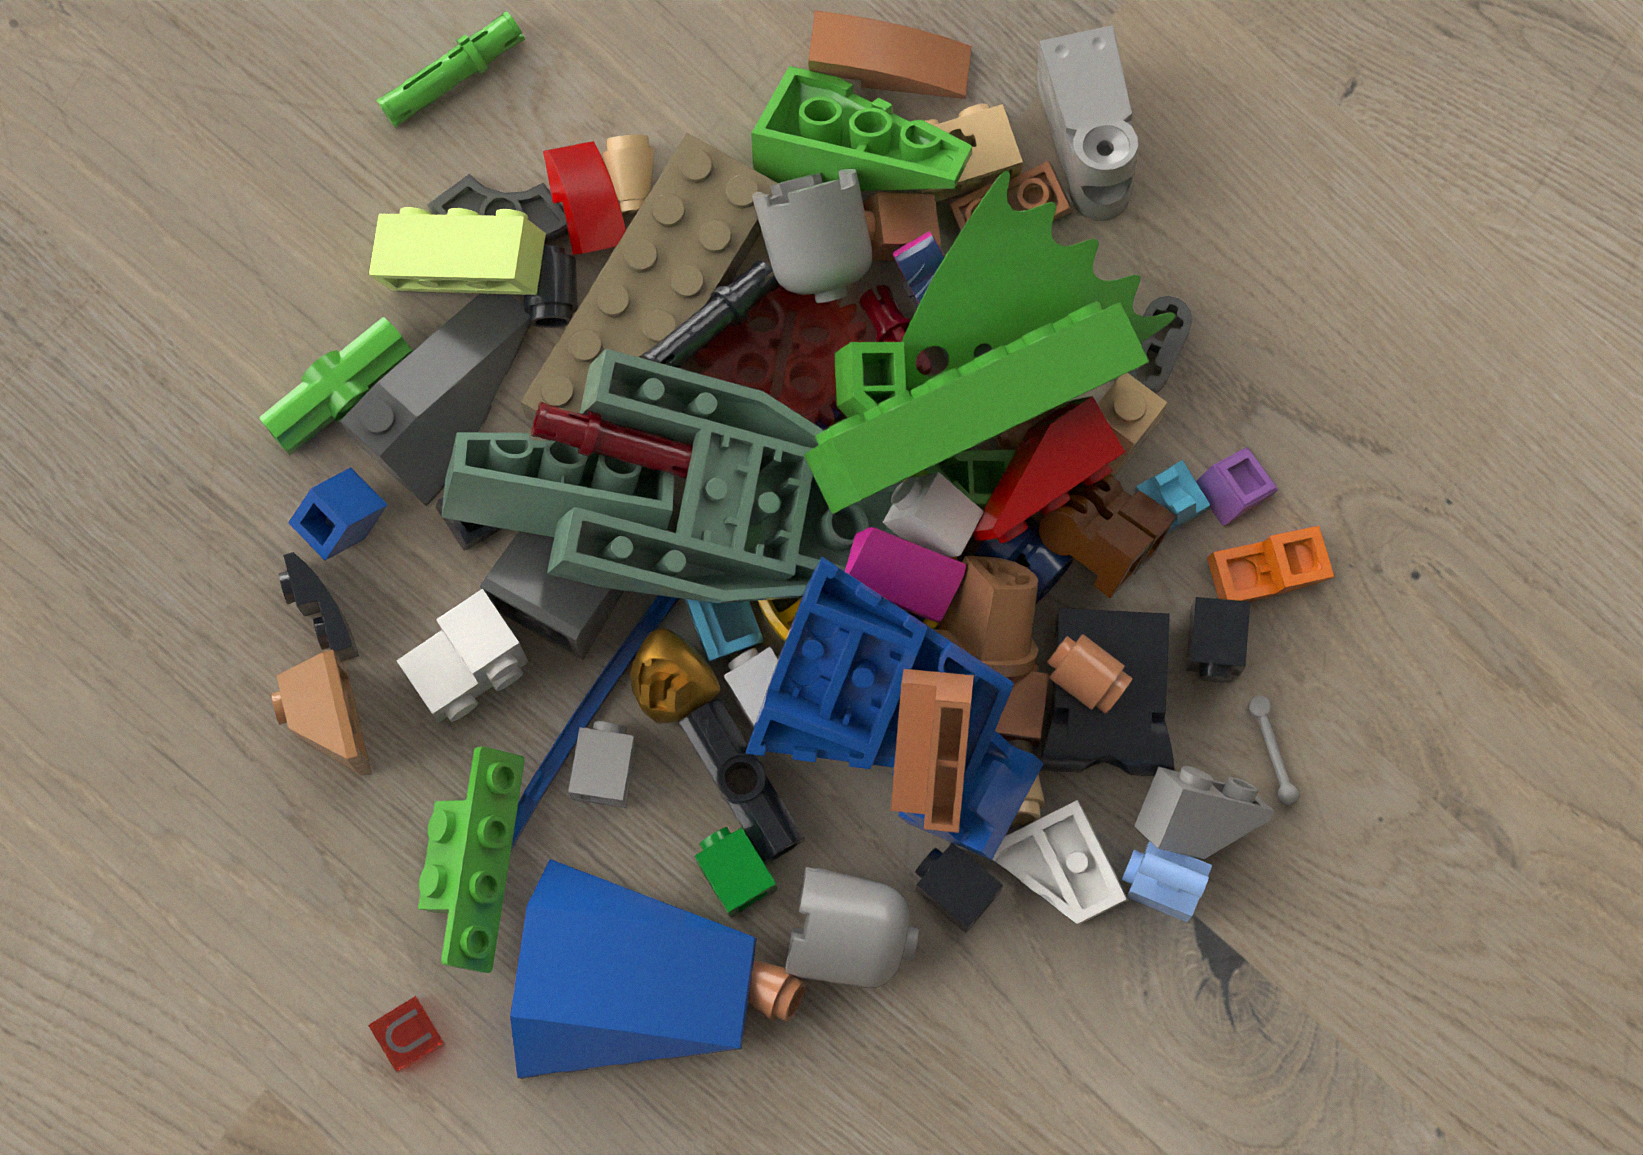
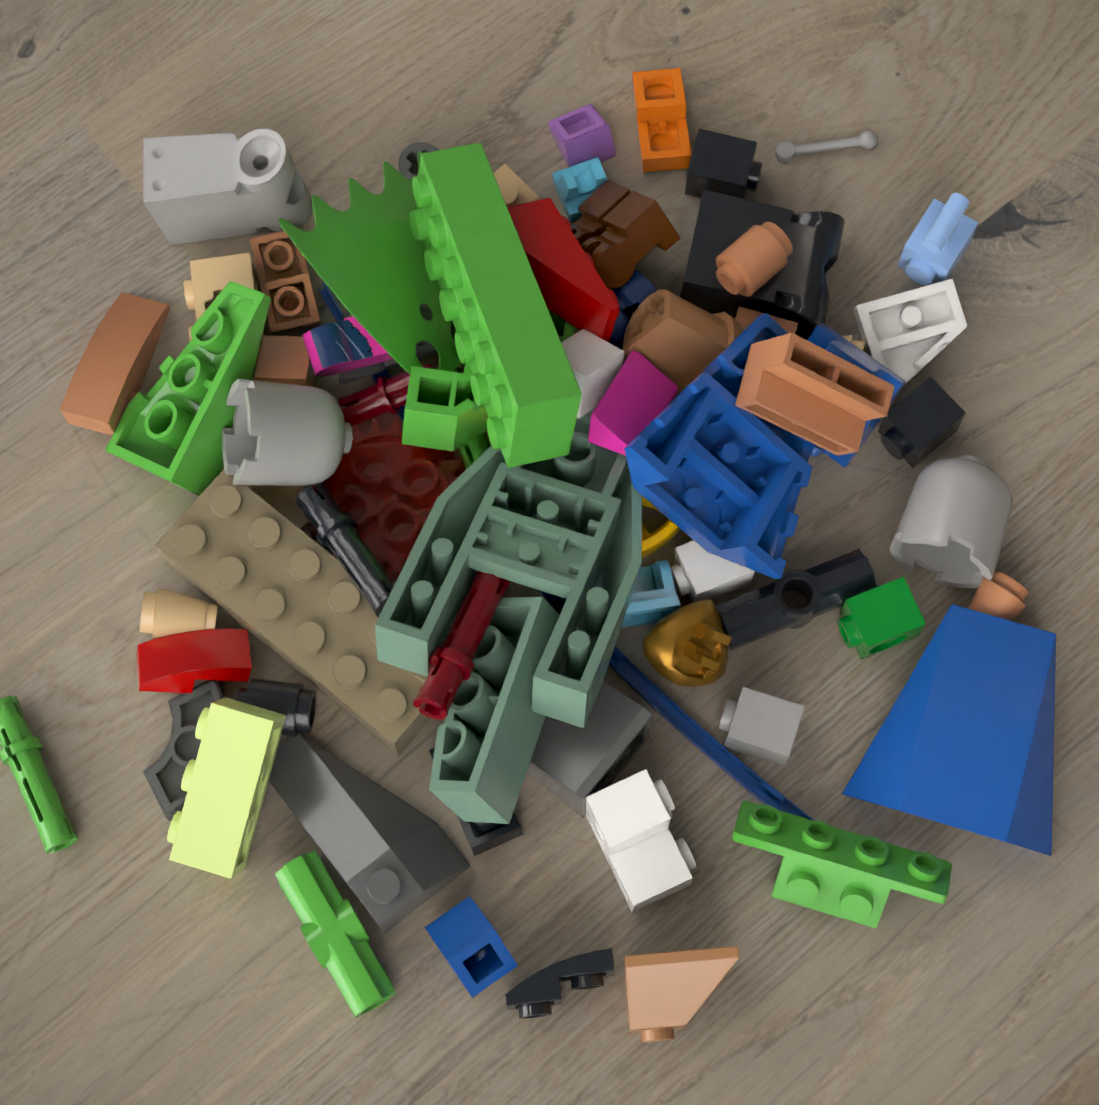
camera: 80 degrees left, 5 degrees down
(406, 1034) = (998, 957): clear red tile -> none
(1199, 815) = (883, 204): light grey slope -> none

